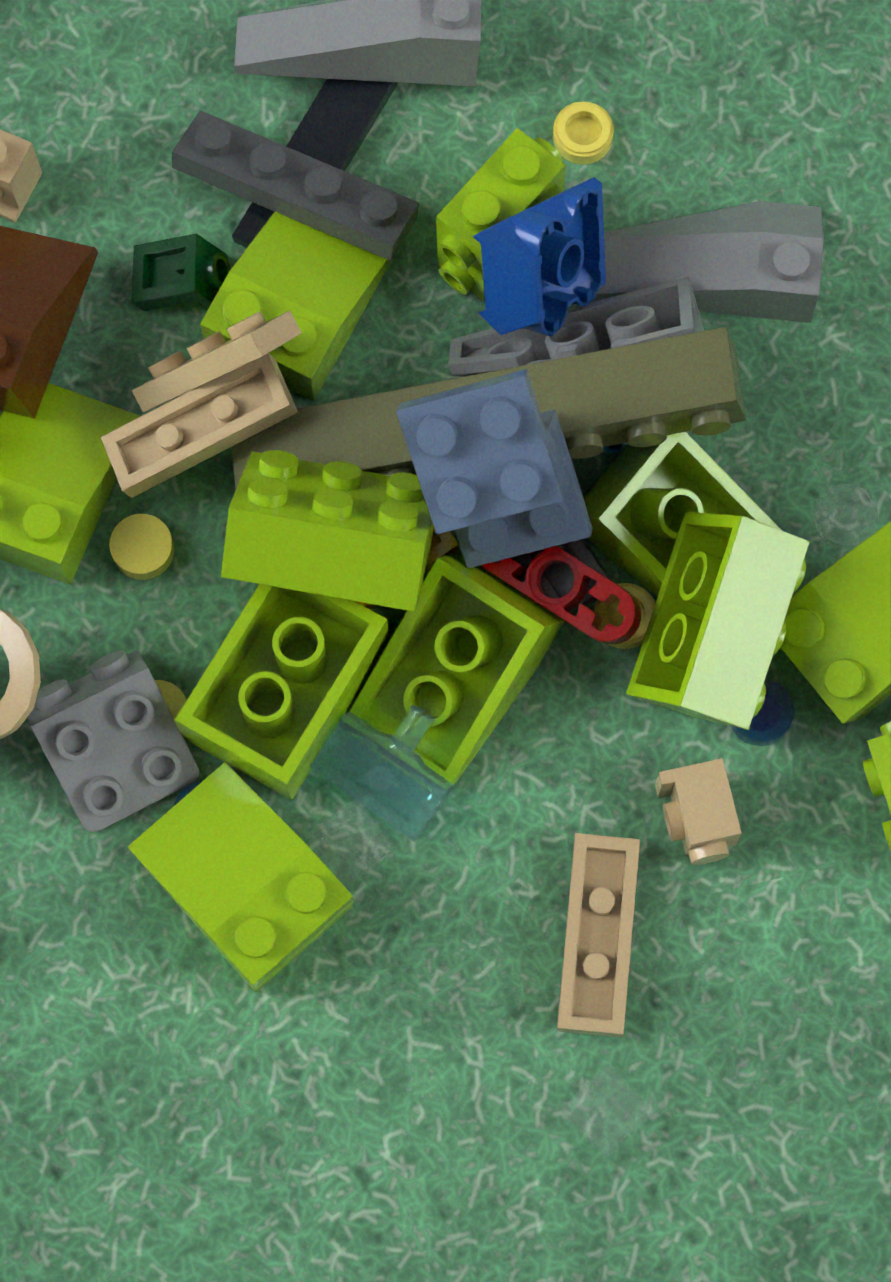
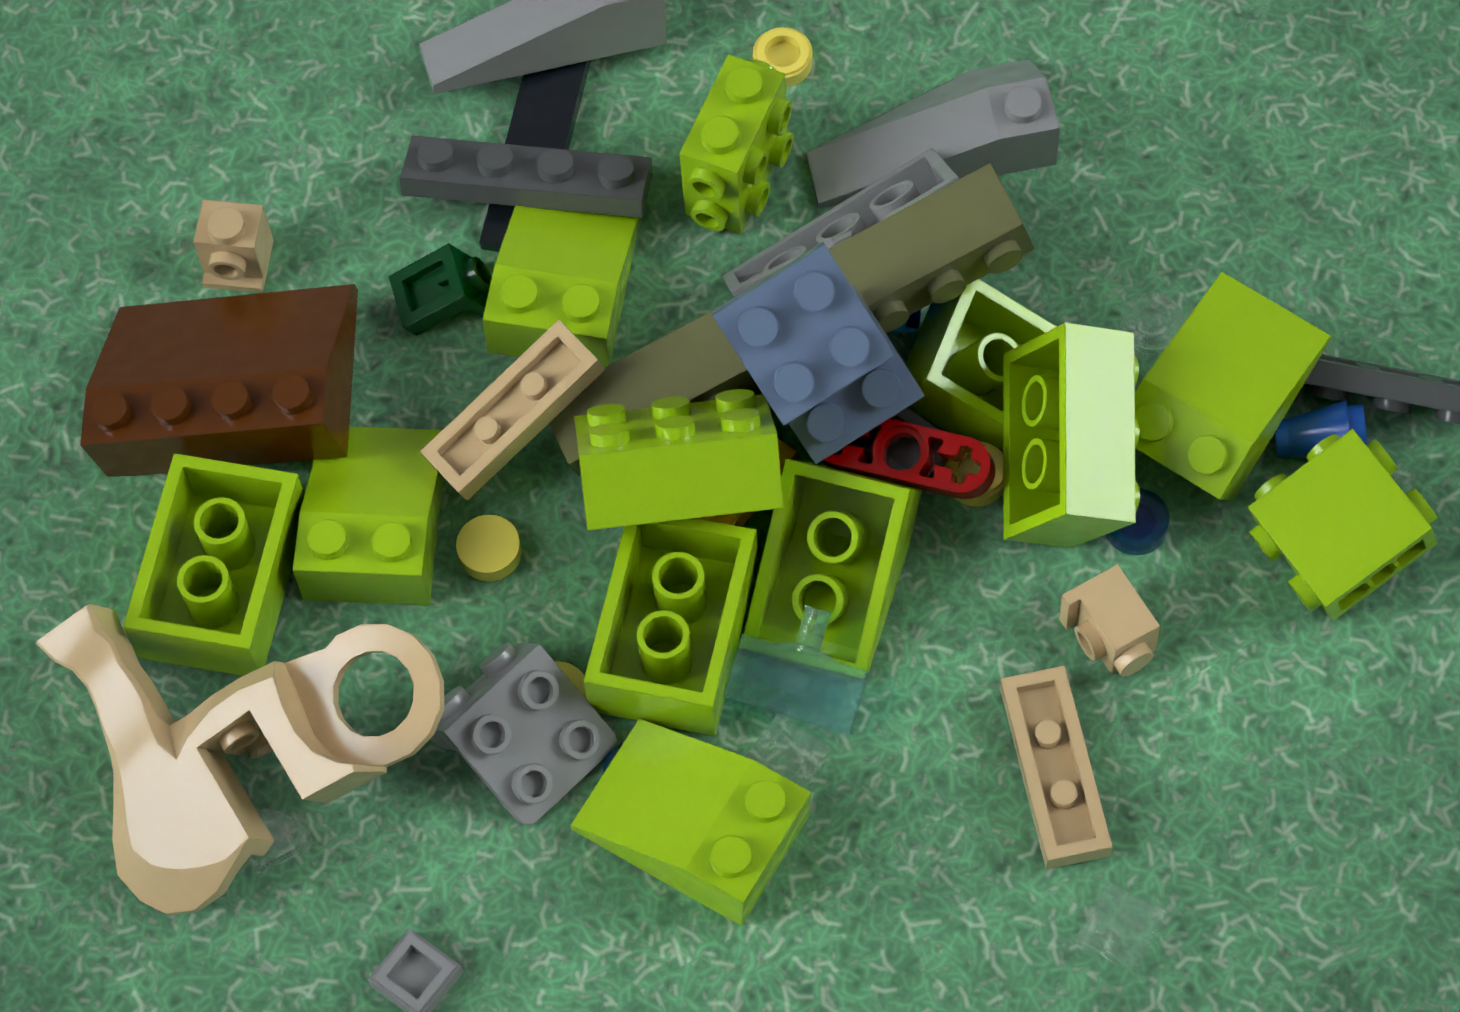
camera: 15 degrees left, 10 degrees down
(214, 357) = (507, 343): tan plate -> none
(544, 261) = (792, 168): blue slope -> none

